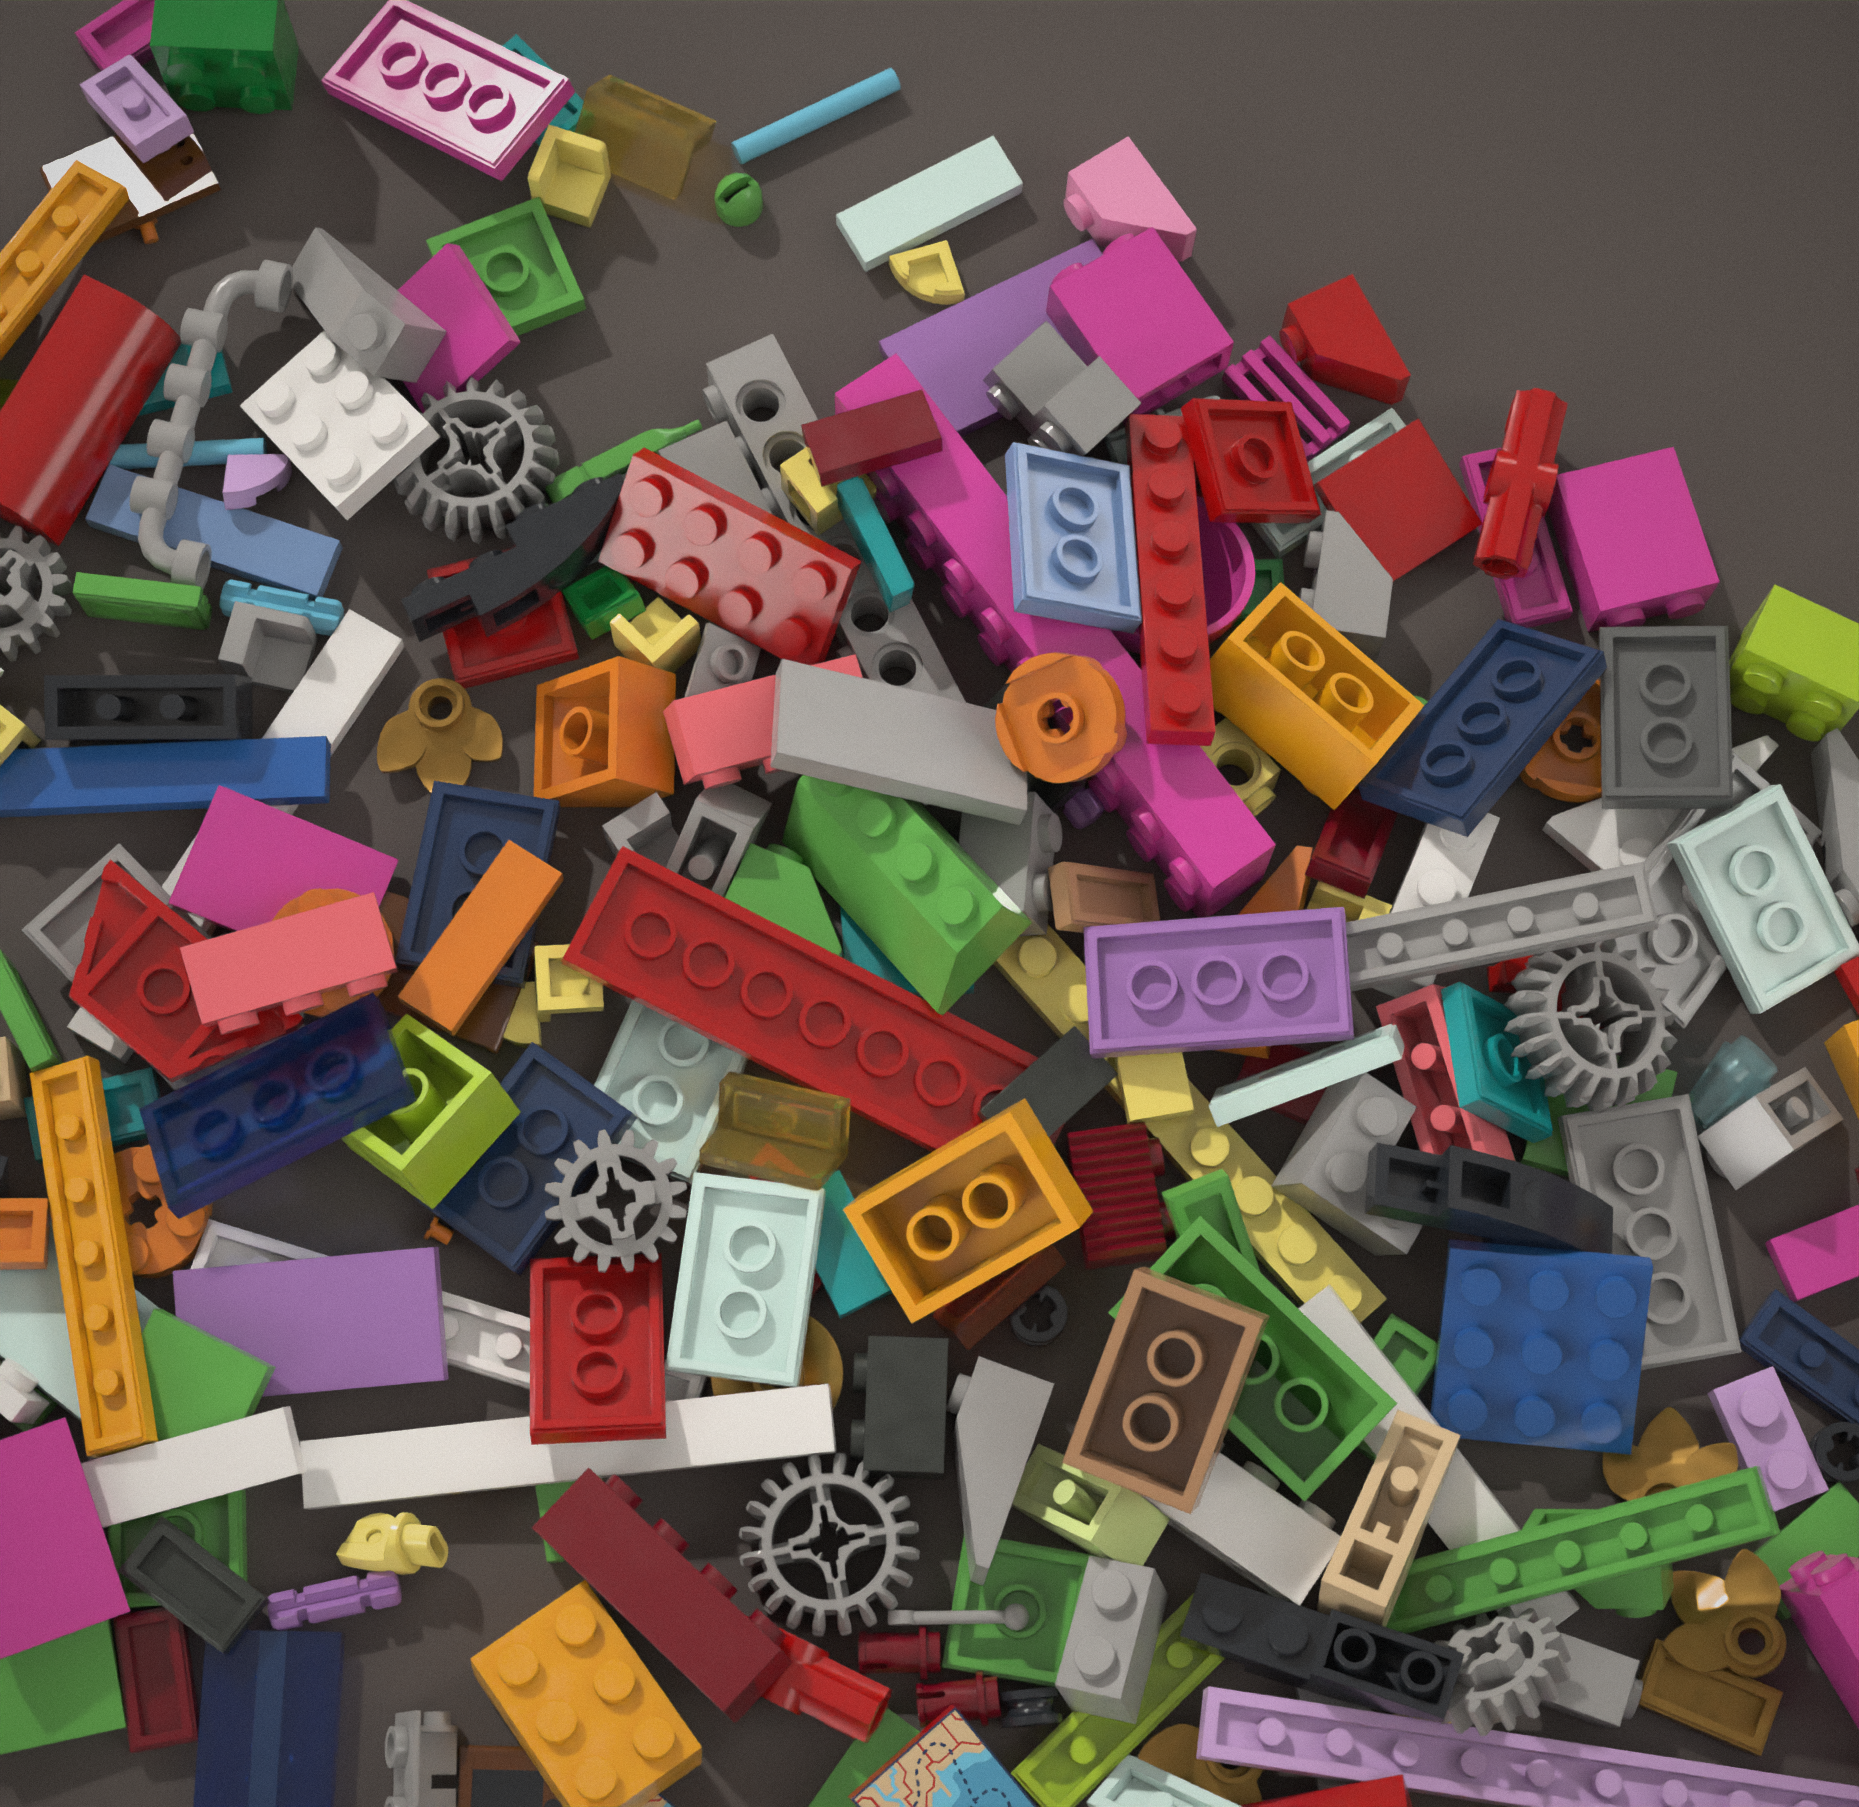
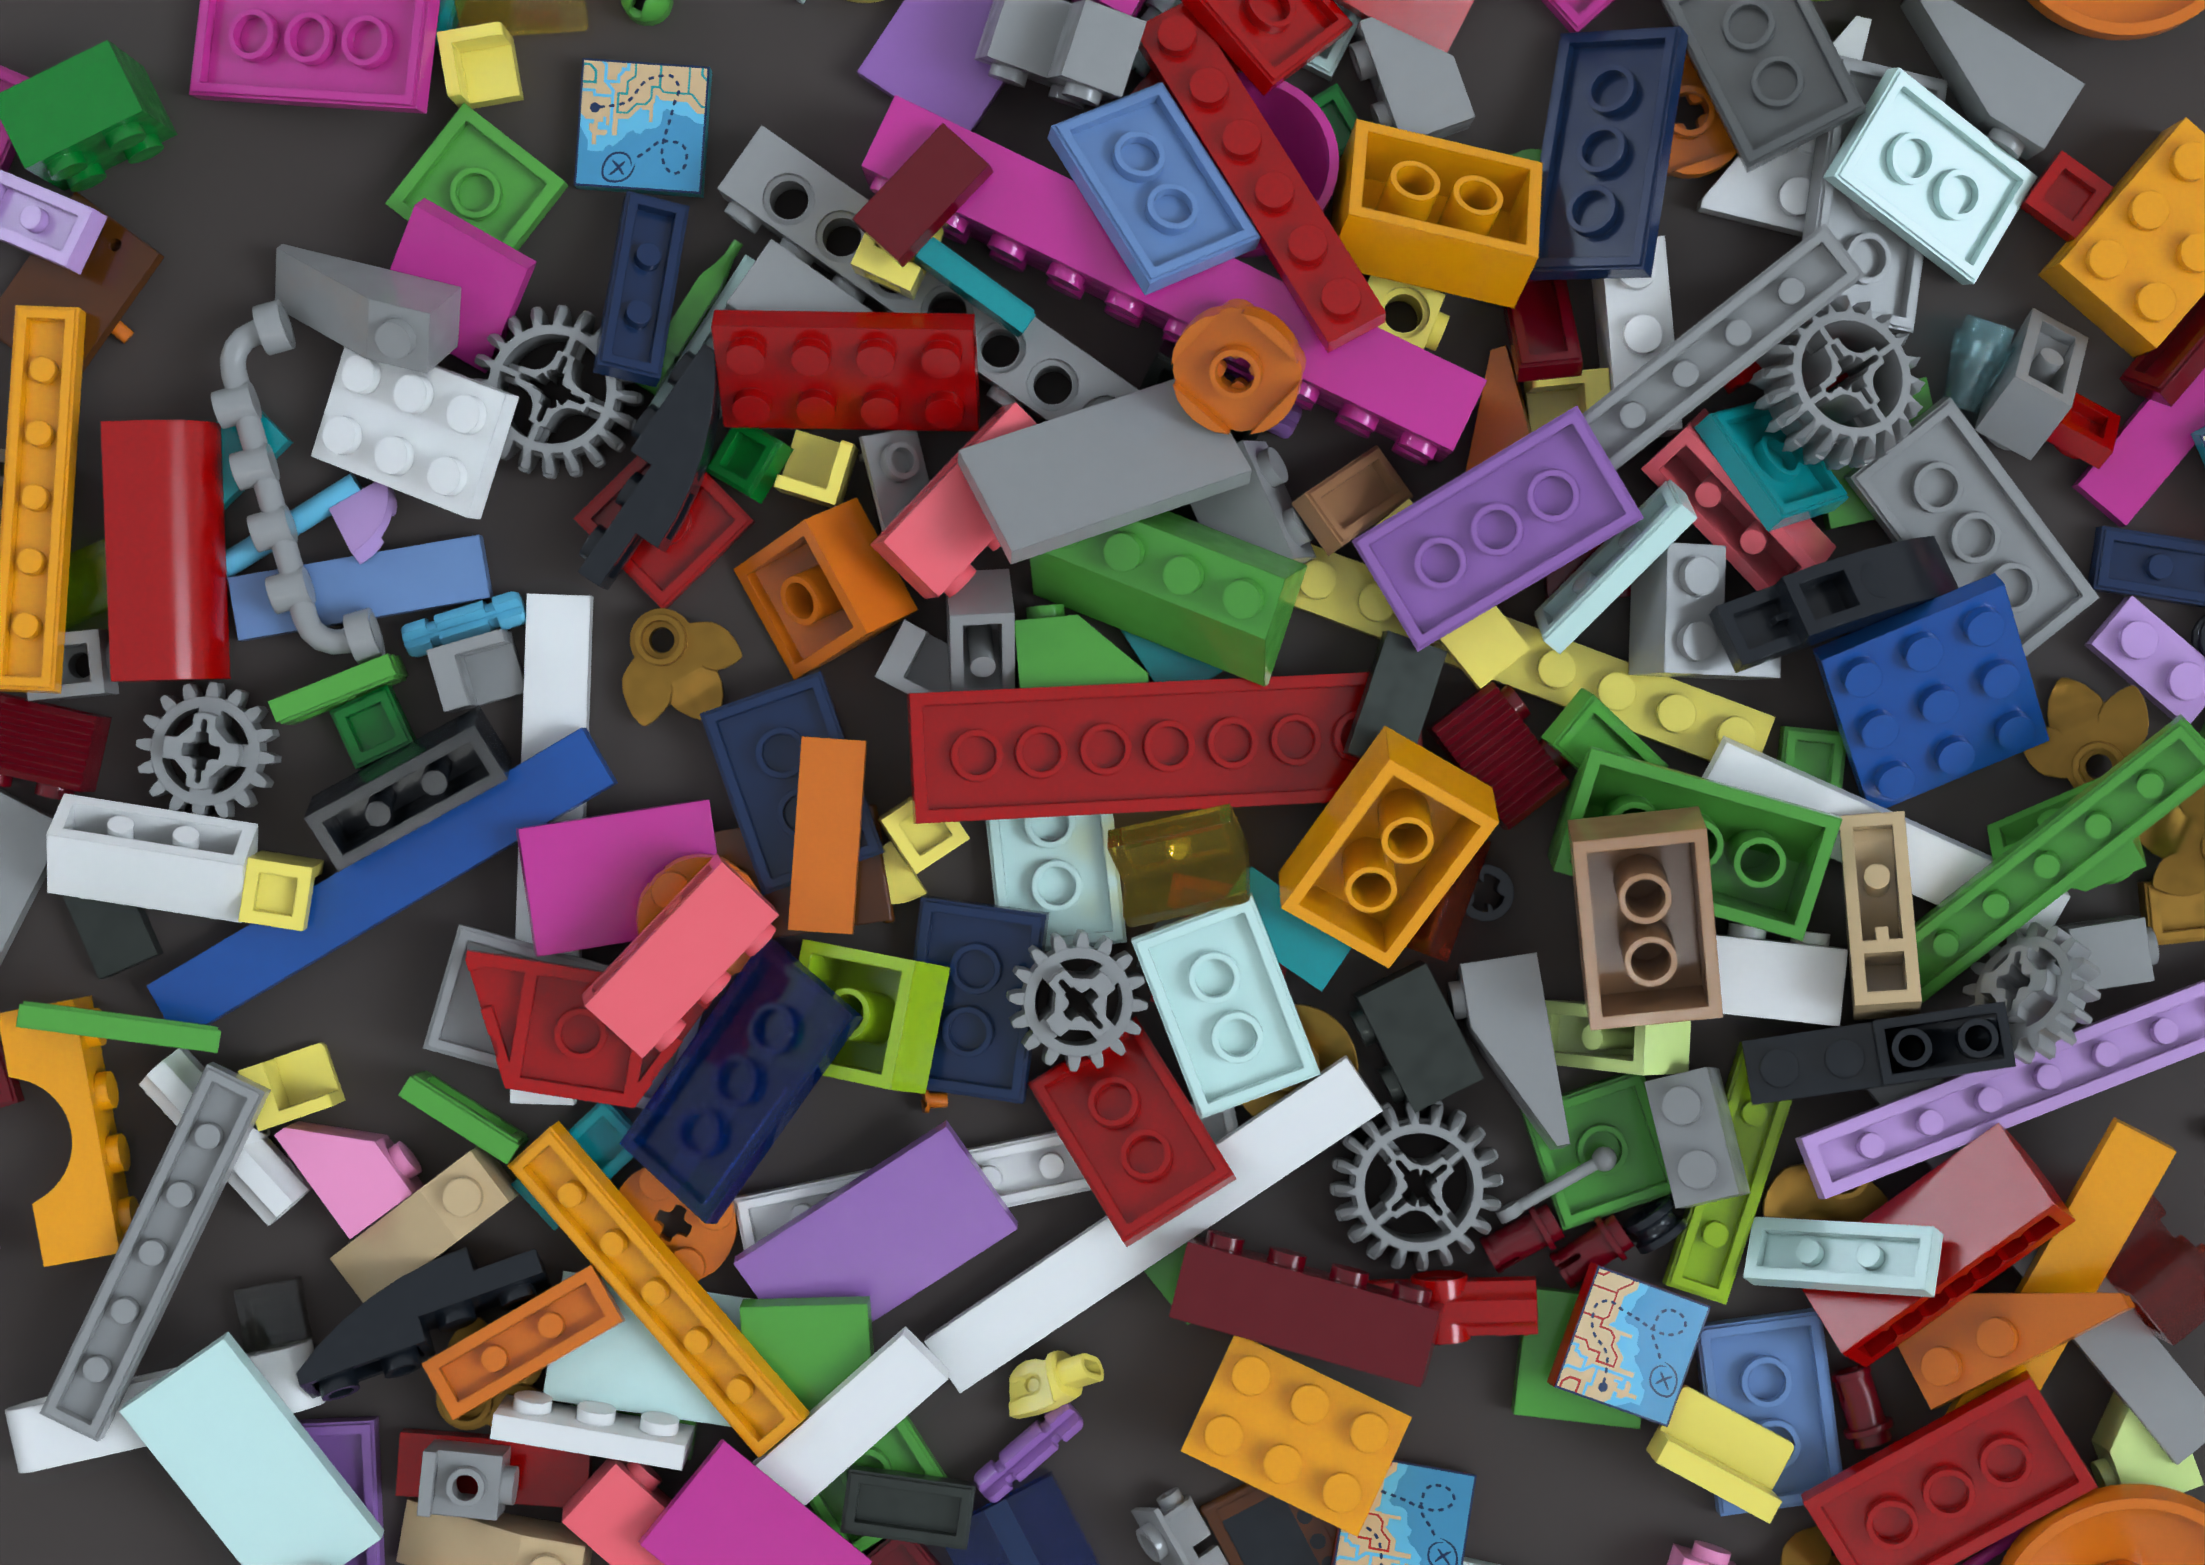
camera: 30 degrees left, 15 degrees up
(152, 647) = (372, 726): none -> green tile
(594, 412) = (641, 289): none -> dark blue tile
(674, 296) = (643, 127): none -> tile
(1797, 1190) = (2086, 432): none -> red plate

